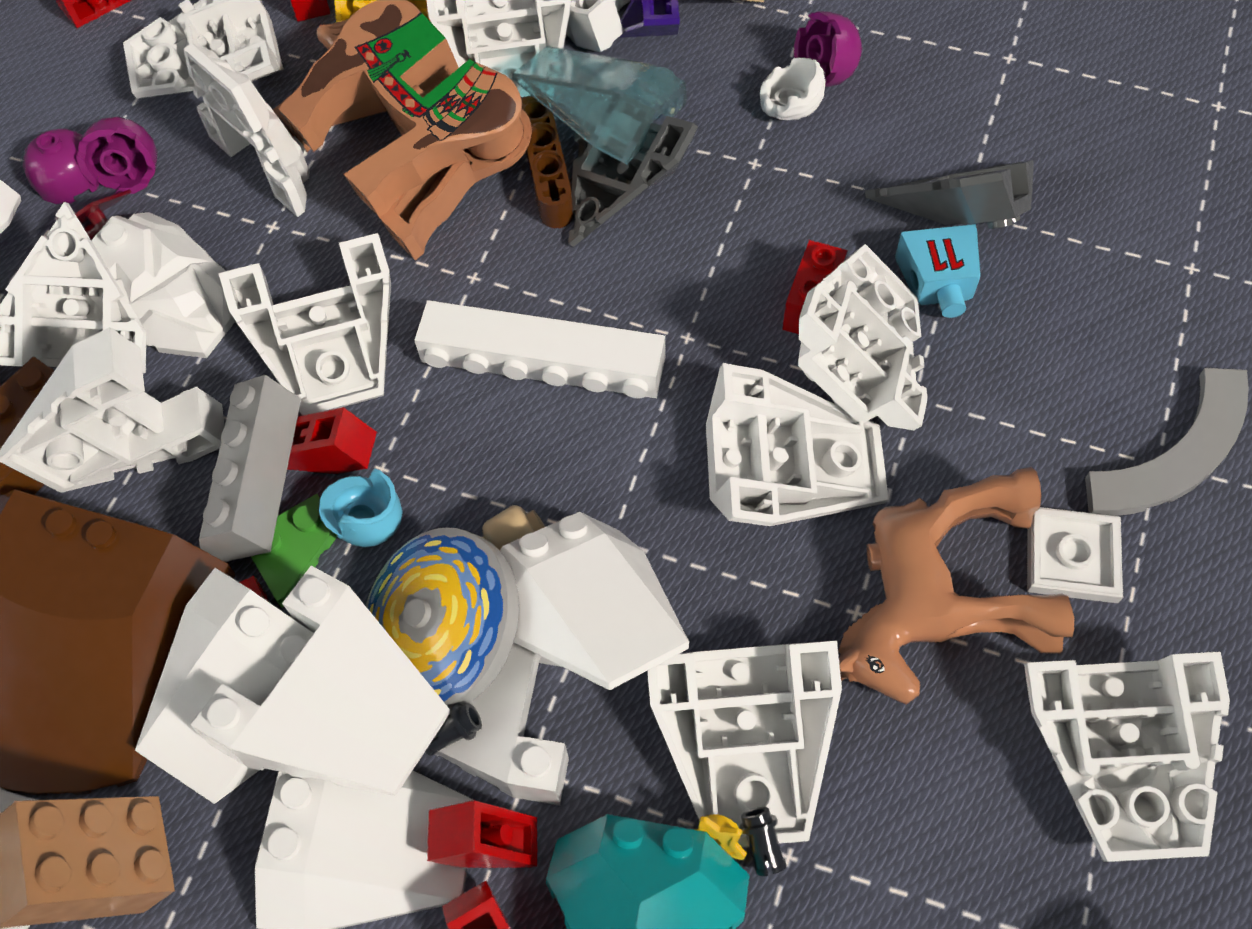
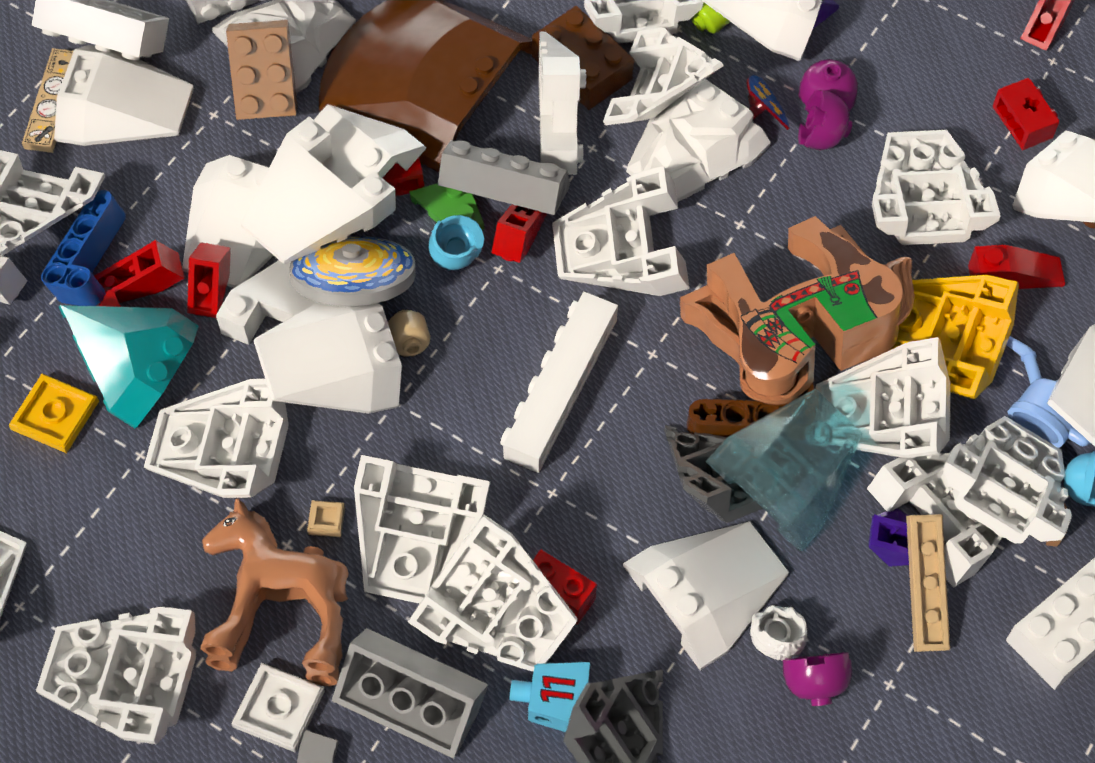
camera: 100 degrees right, 0 degrees up
(239, 117) = (805, 187): white wedge -> none
(460, 724) = (276, 271): black pin -> none
(724, 832) = (160, 406): yellow plate -> none
(754, 170) = (710, 585): none -> white wedge
(759, 828) = (156, 431): black pin -> none
(806, 571) = (326, 518): none -> tan tile
(997, 402) = (409, 692): none -> light grey slope

